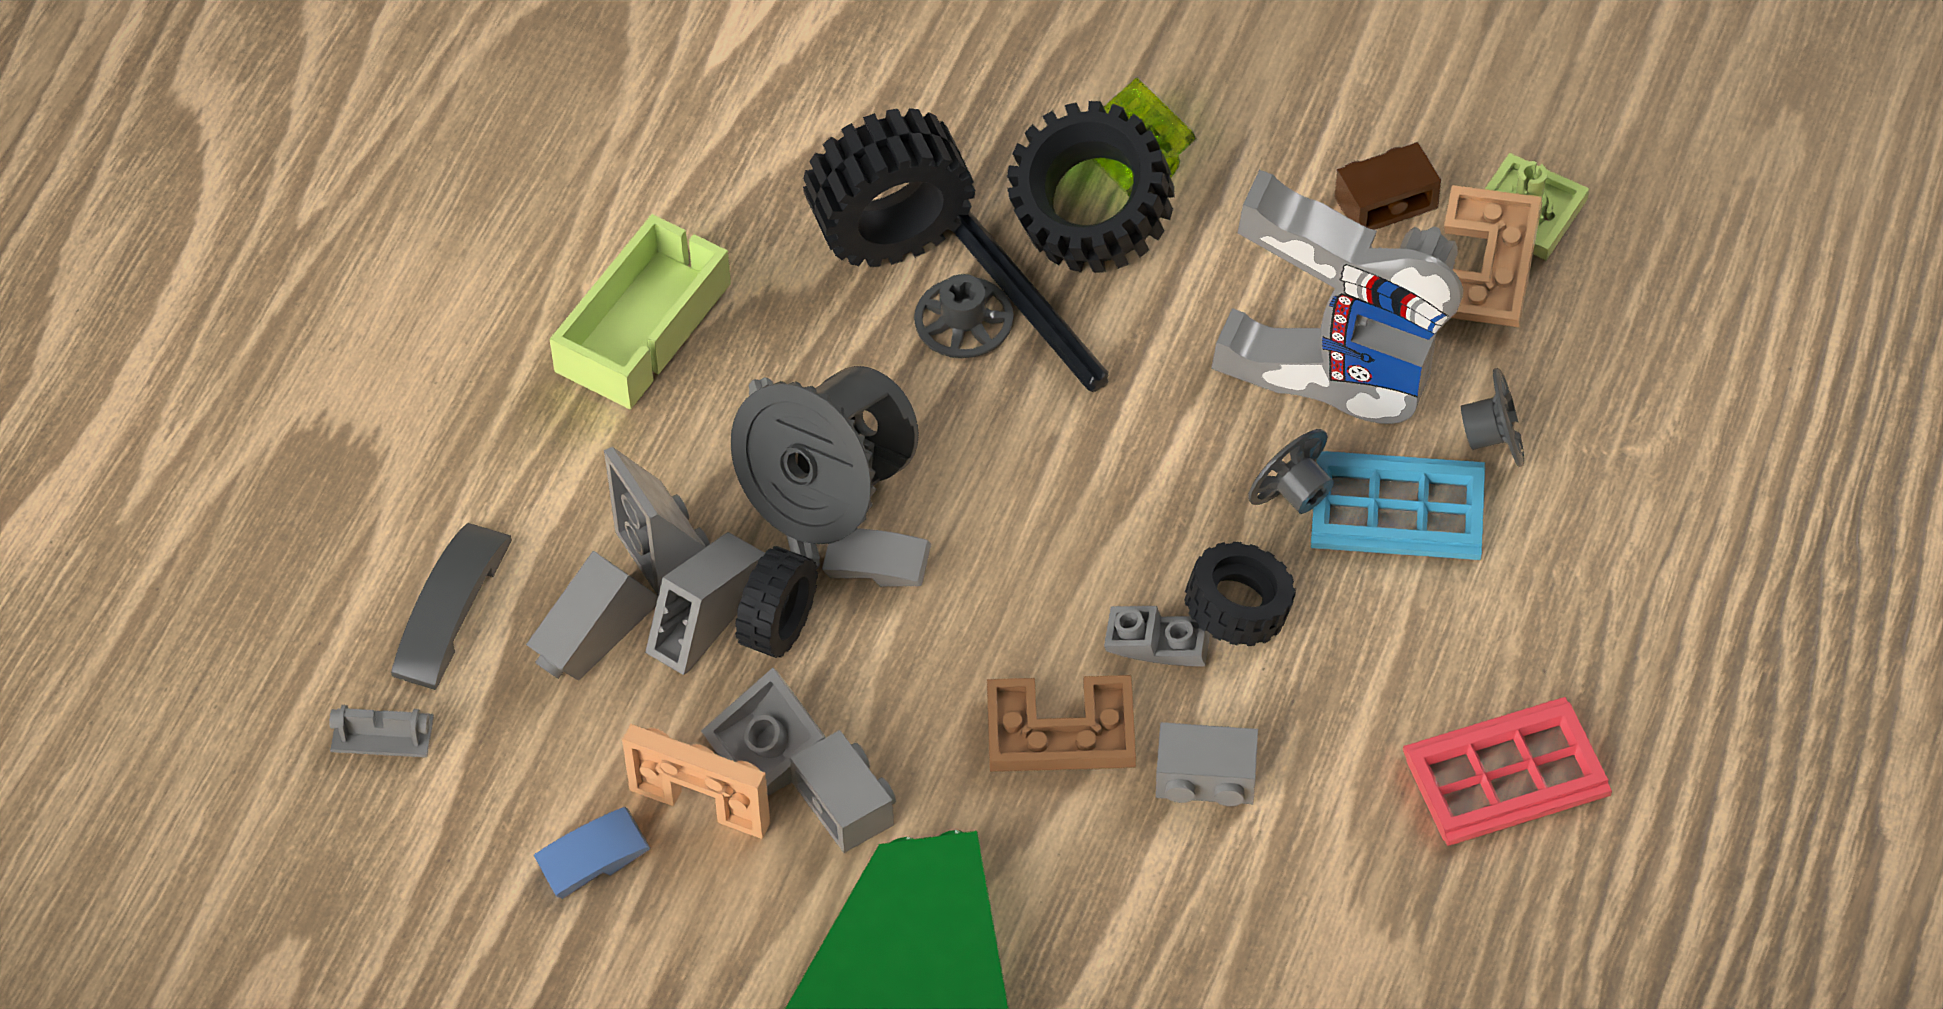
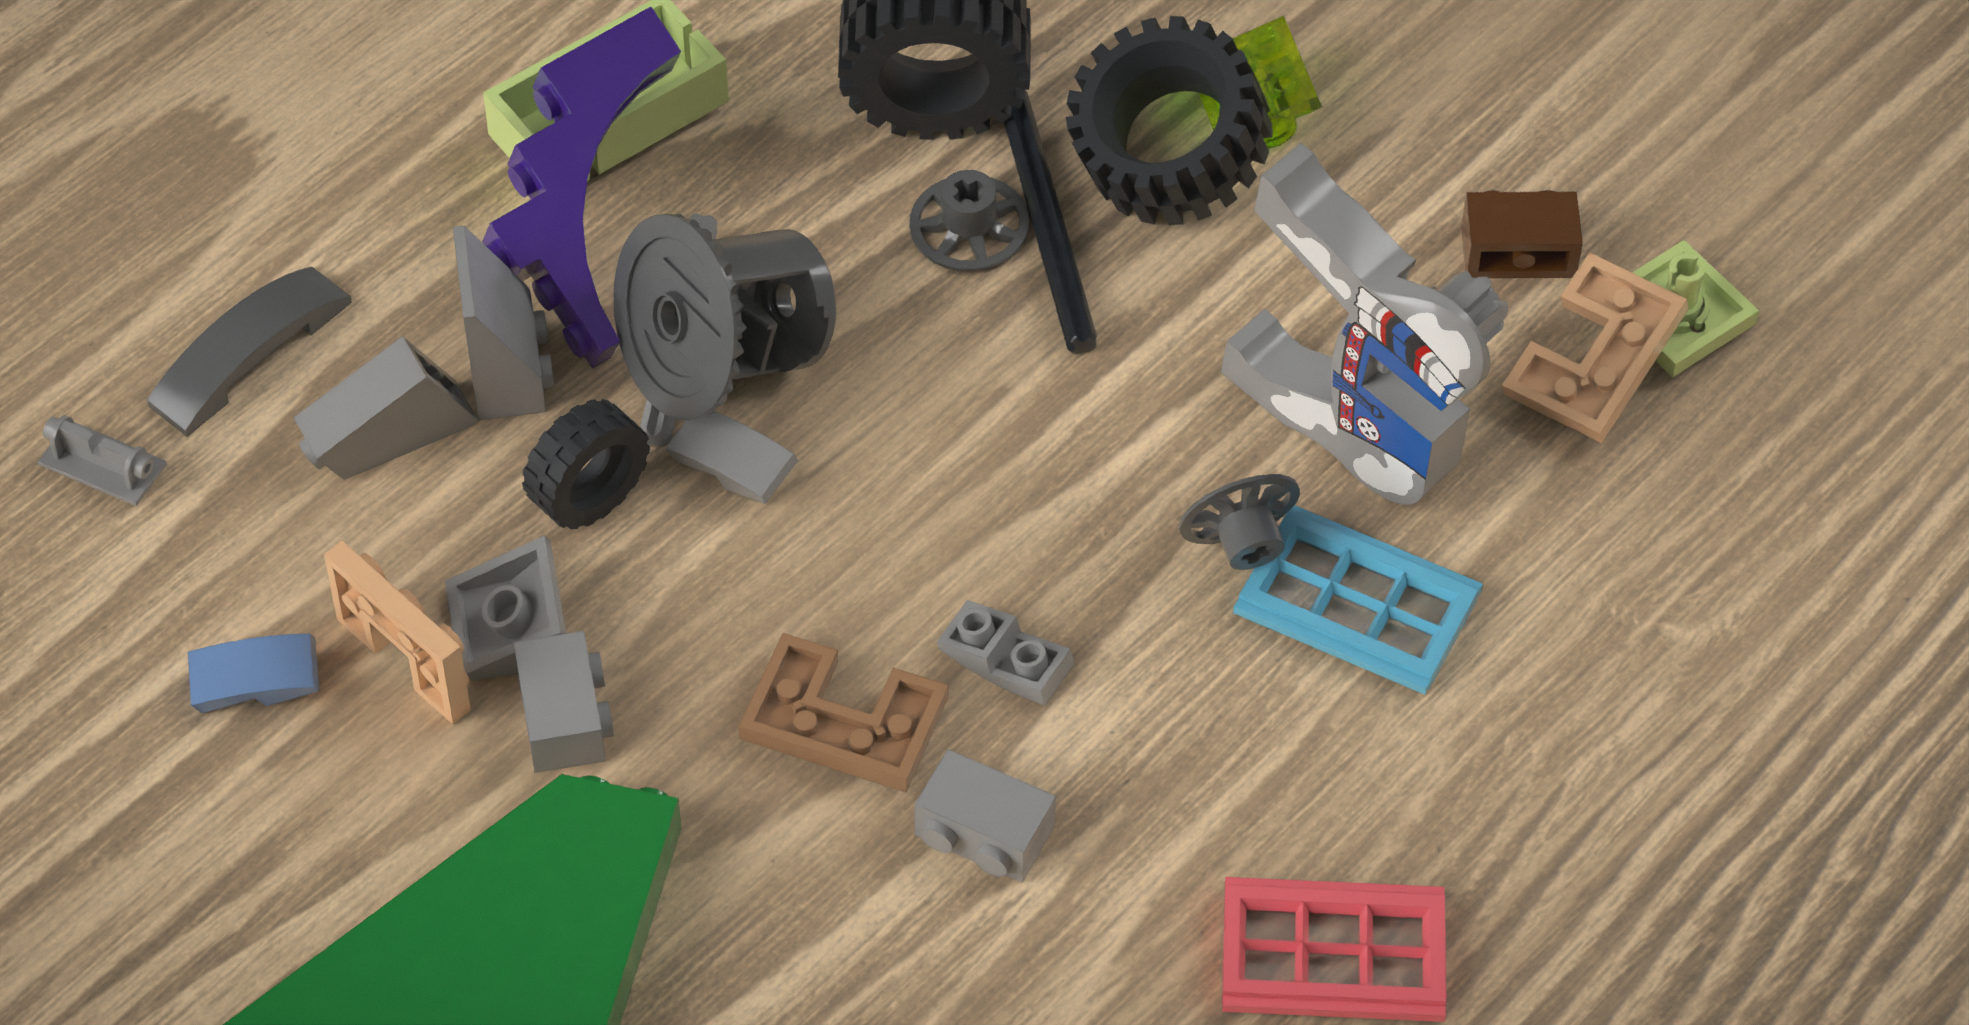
camera: 20 degrees right, 0 degrees up
(644, 380) = (546, 234): none -> dark purple arch
(700, 601) = (497, 431): light grey slope -> none
(1230, 620) = (1100, 669): black tyre -> none
(1491, 420) = (1510, 537): dark grey wheel -> none

